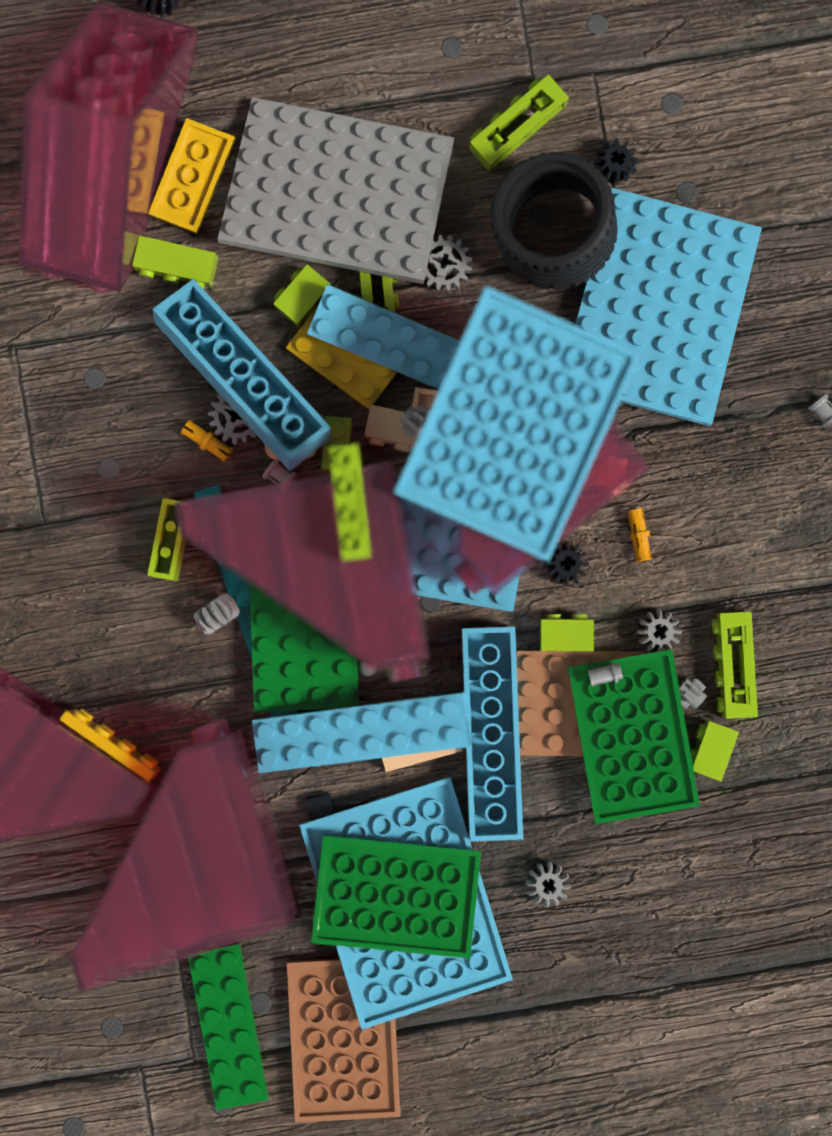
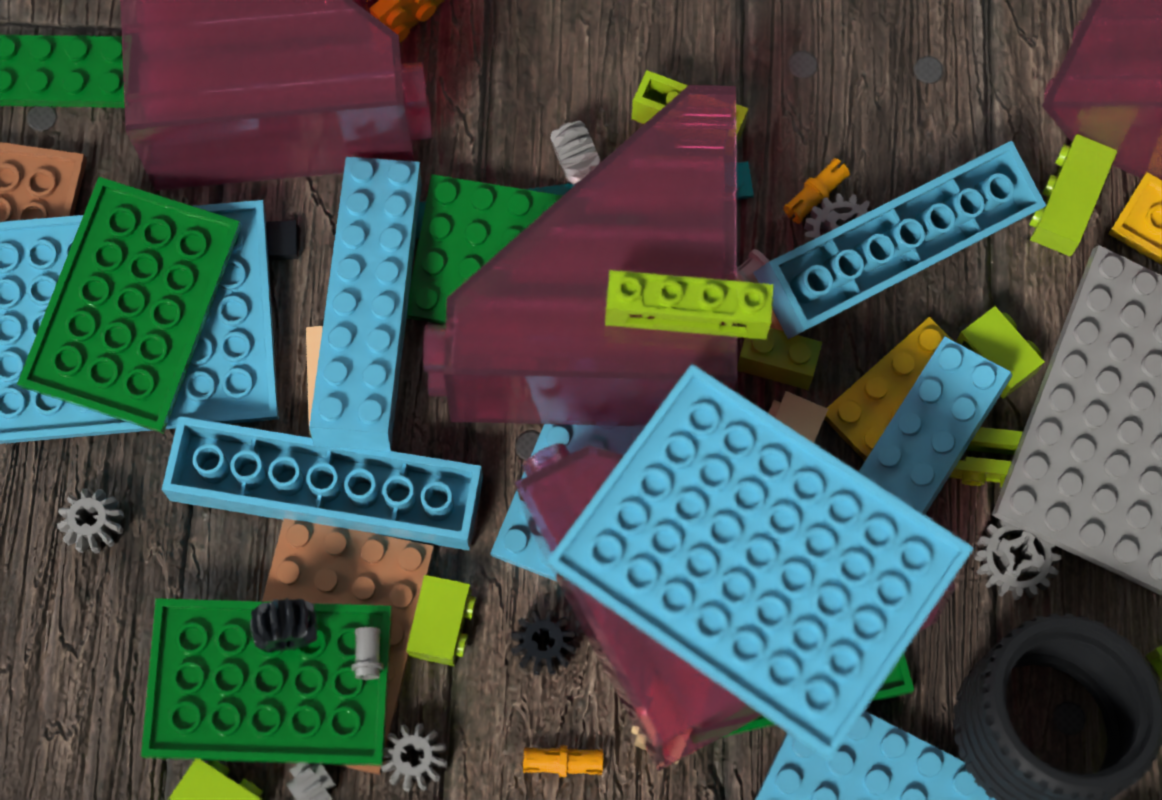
camera: 100 degrees right, 15 degrees down
(601, 732) = (284, 625): none -> black gear

